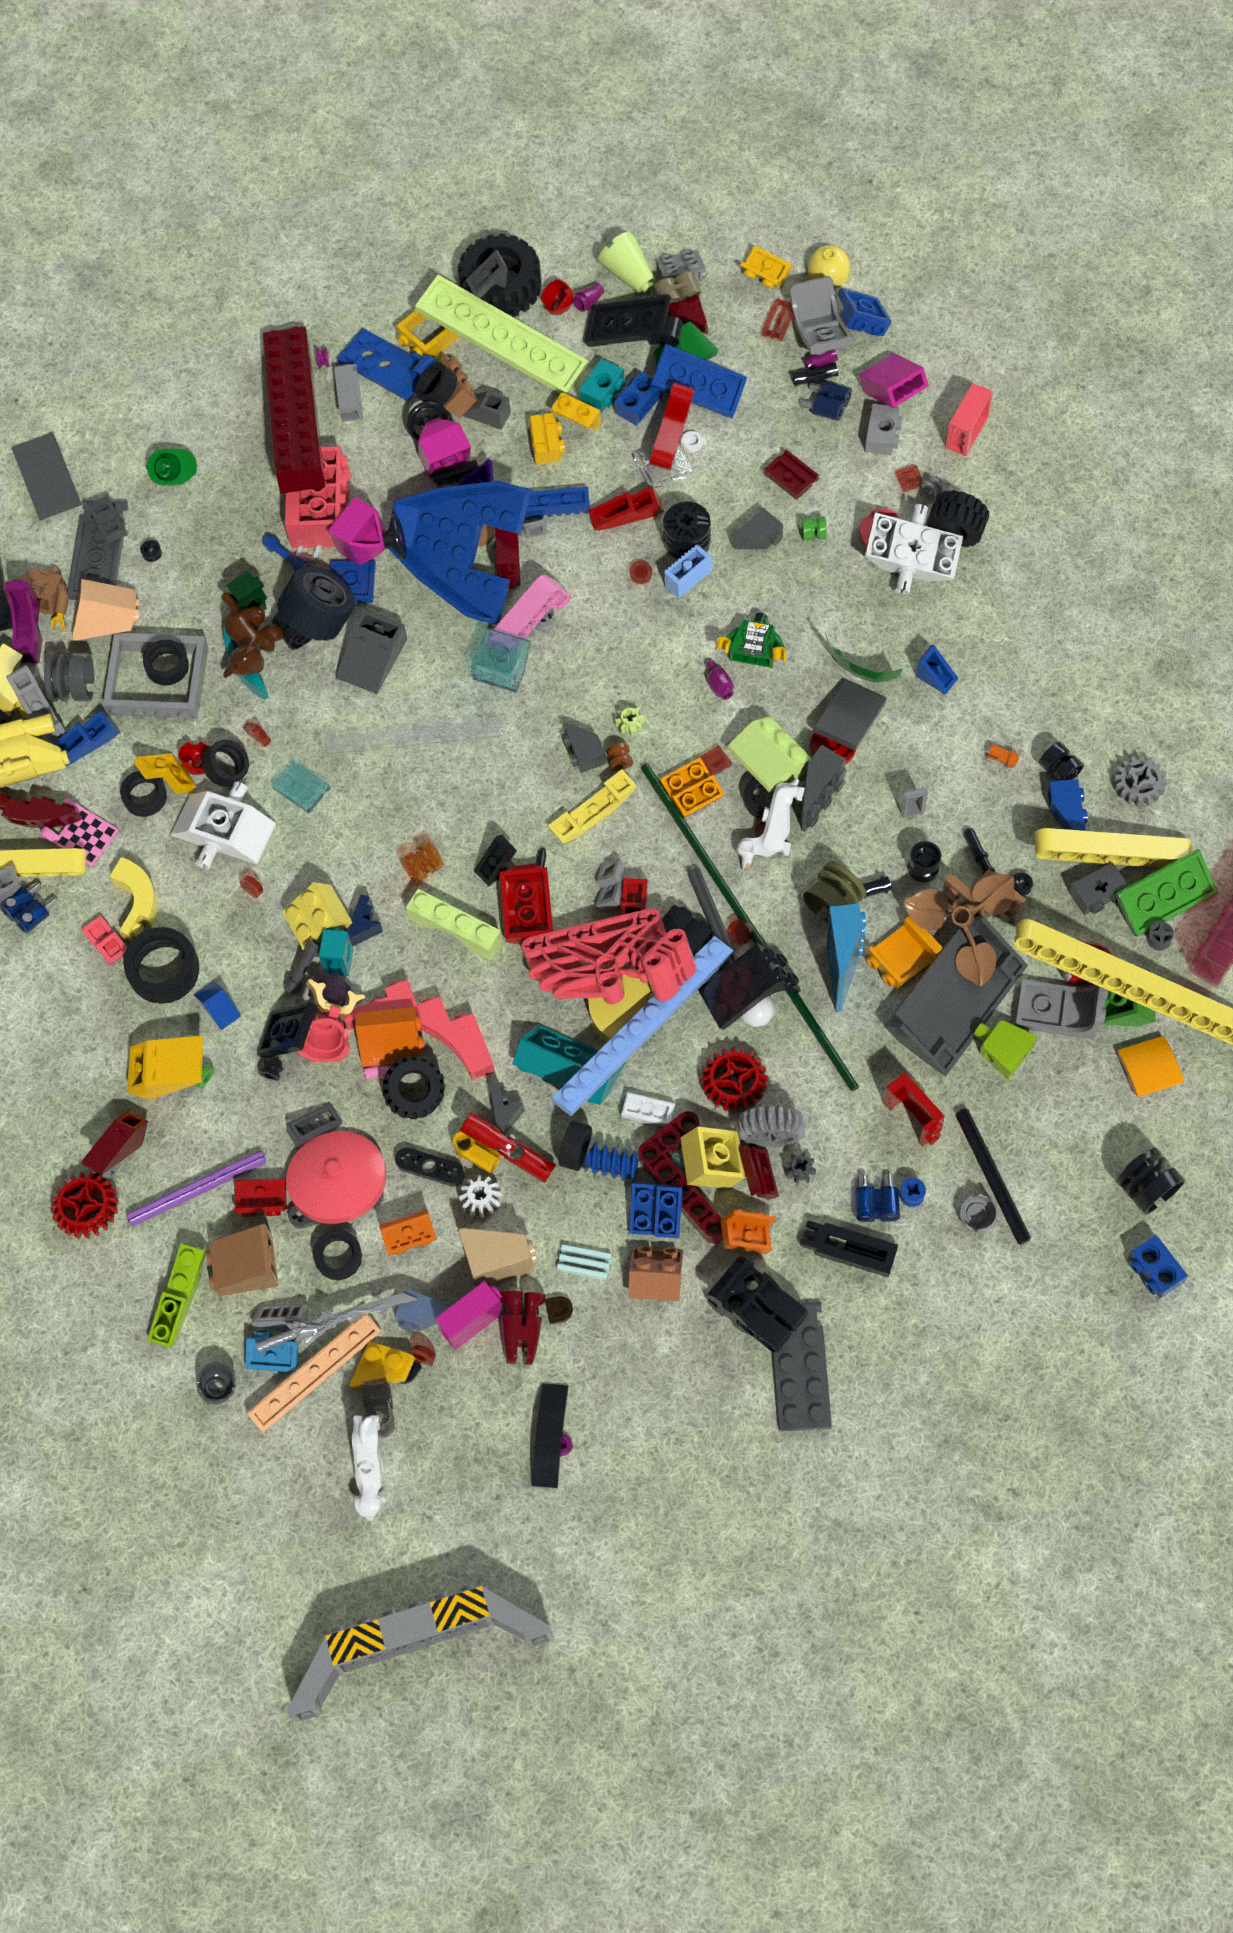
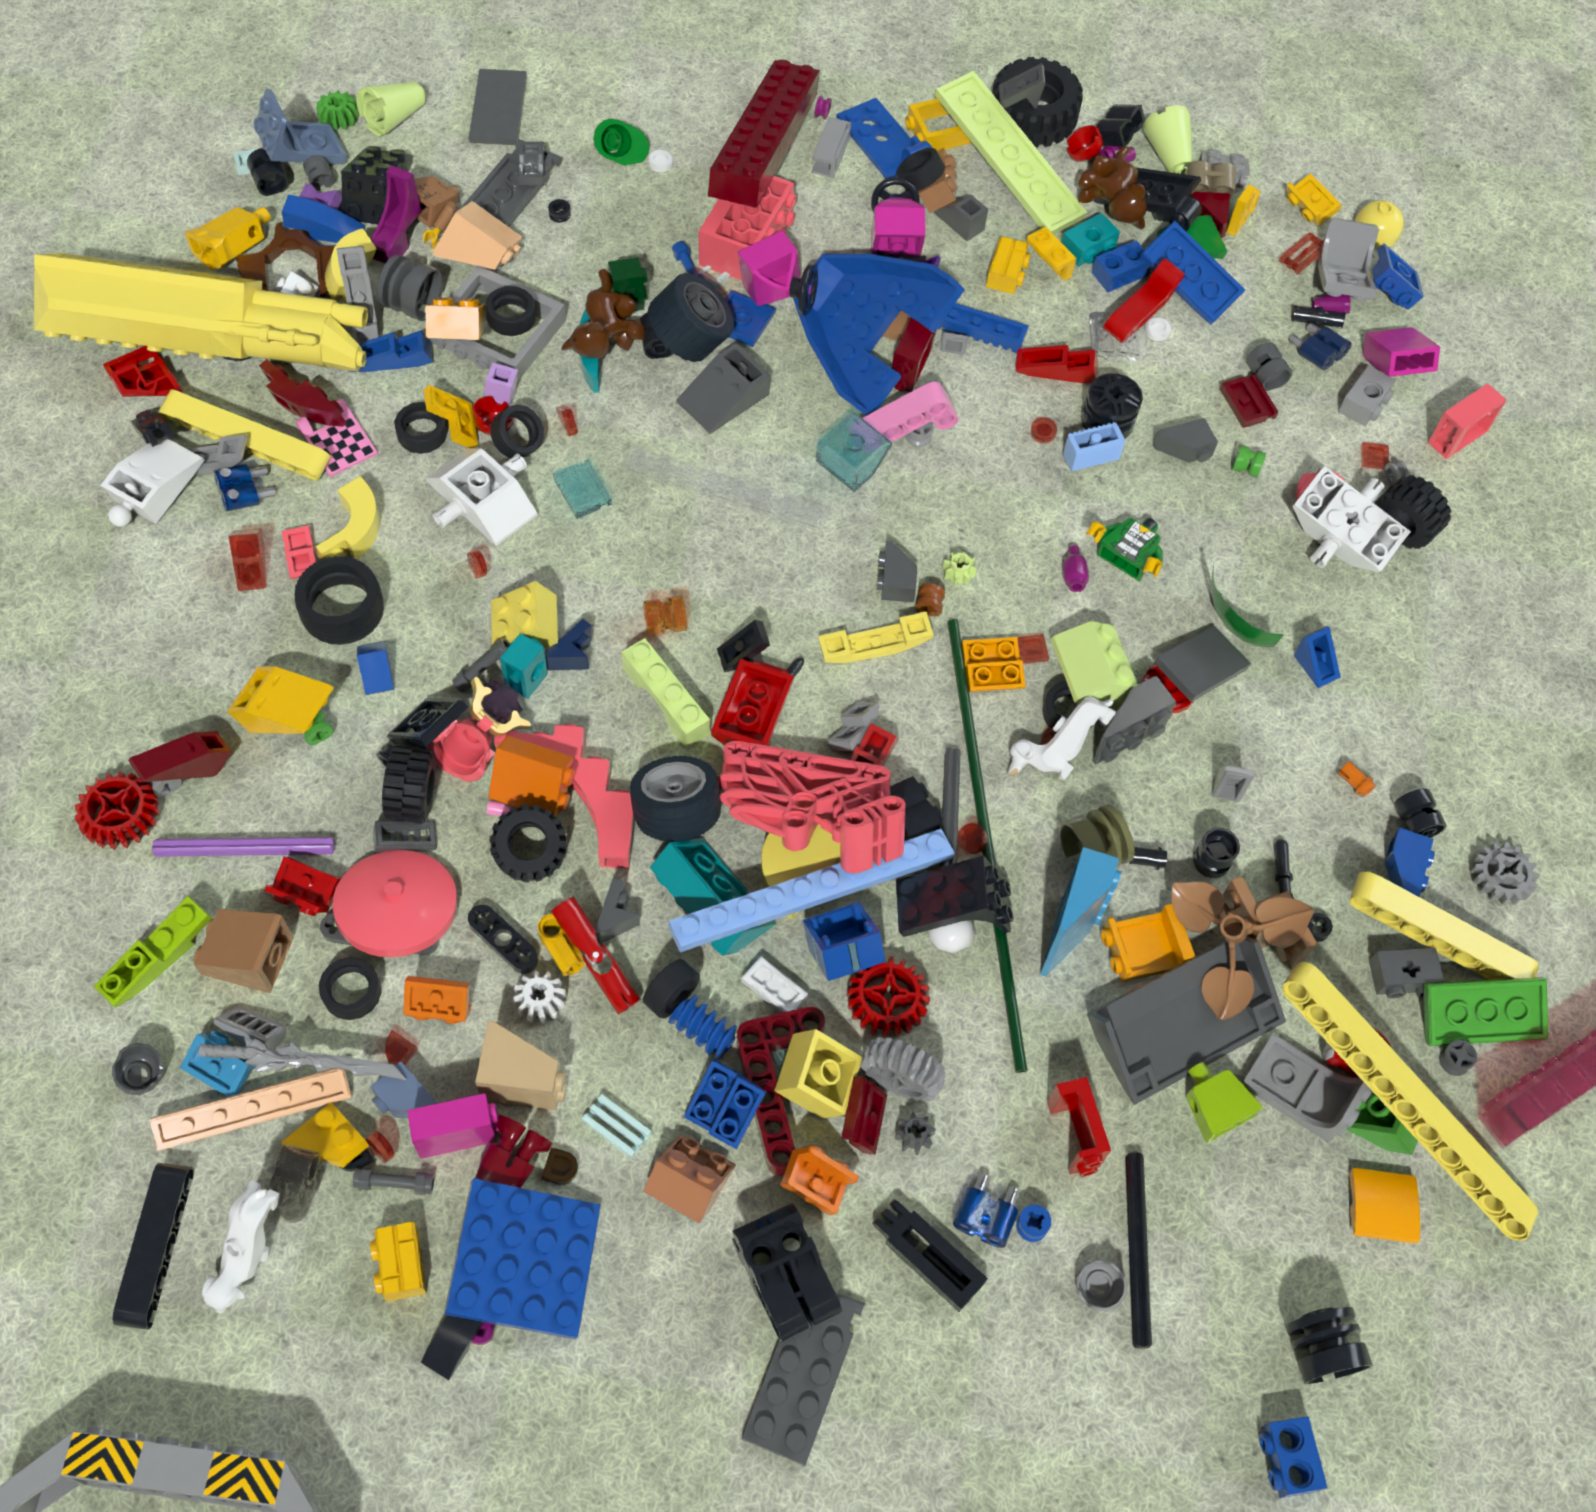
camera: 15 degrees right, 5 degrees down
(69, 963) = (248, 558): none -> clear red slope
(126, 690) = (455, 320): none -> slope
(190, 727) = (501, 383): none -> lavender brick
(211, 467) = (660, 161): none -> white tile
(298, 1497) = (151, 1245): none -> black beam
(300, 1084) = (408, 784): none -> black tyre
(397, 1281) = (399, 1049): none -> clear red tile
(424, 1381) = (421, 1183): none -> dark grey bar
(480, 1425) = (399, 1262): none -> yellow brick
(506, 1003) = (675, 798): none -> black wheel
(568, 1382) = (522, 1259): none -> blue plate
(579, 266) = (1121, 124): none -> black brick
(619, 344) = (1115, 181): none -> reddish brown animal
(683, 1053) = (844, 941): none -> blue container
(714, 303) = (1243, 209): none -> yellow tile
(793, 437) = (1269, 366): none -> dark grey wheel

